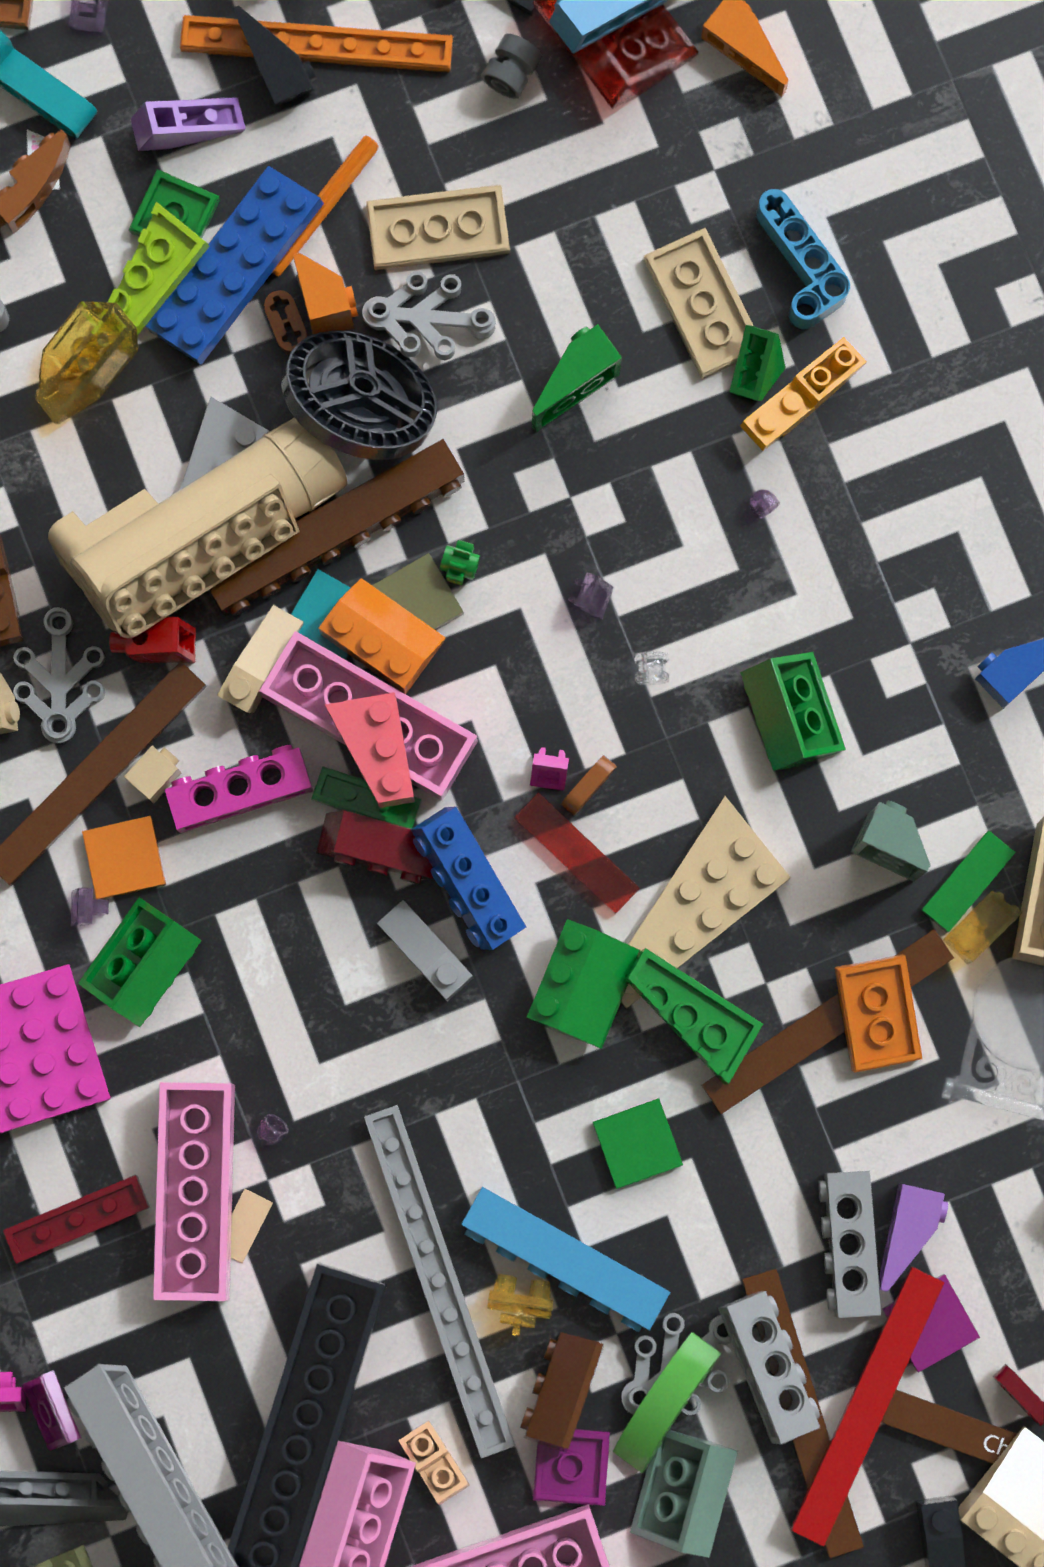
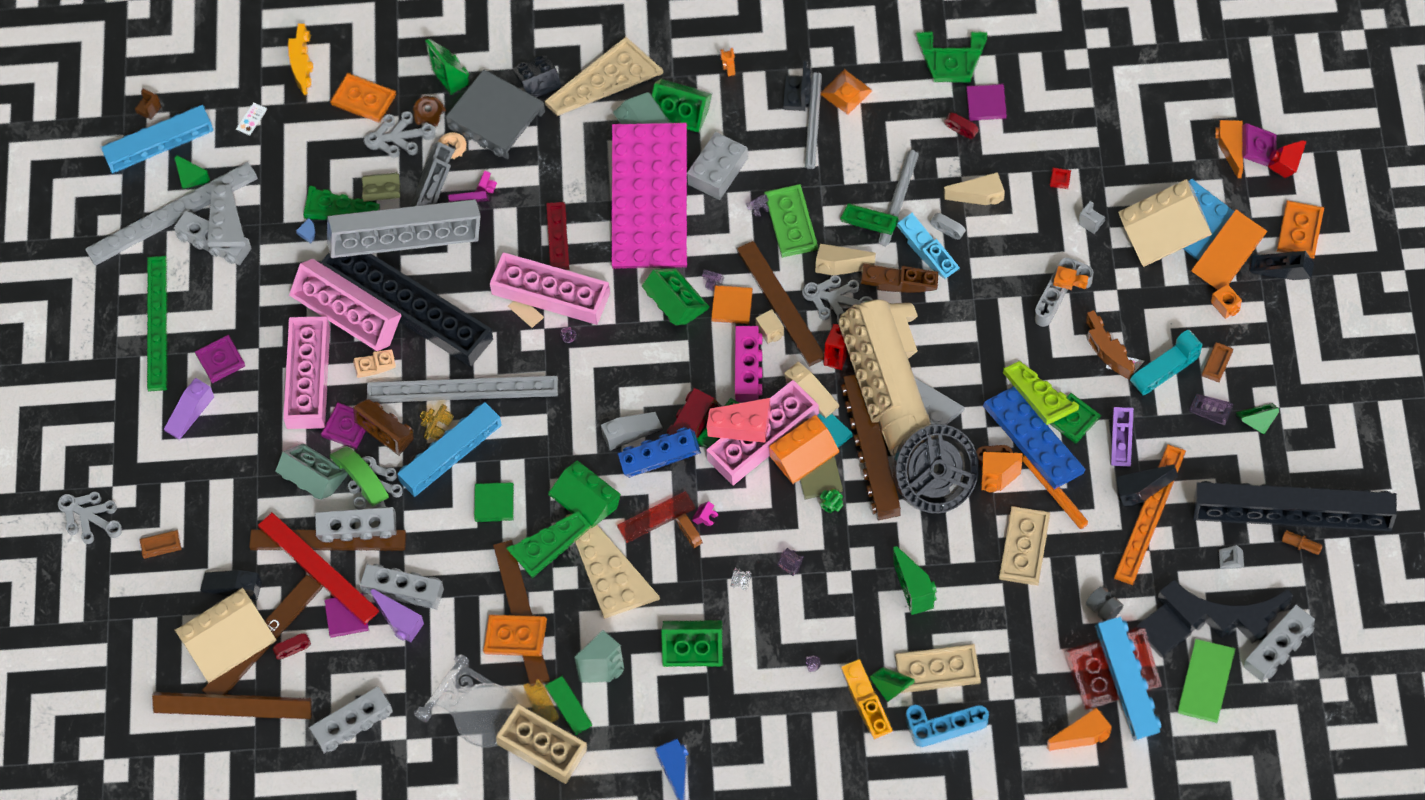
camera: 115 degrees right, 20 degrees down
(84, 358) = (1000, 347): clear yellow wedge -> none
(424, 316) = (975, 522): light grey plant -> none

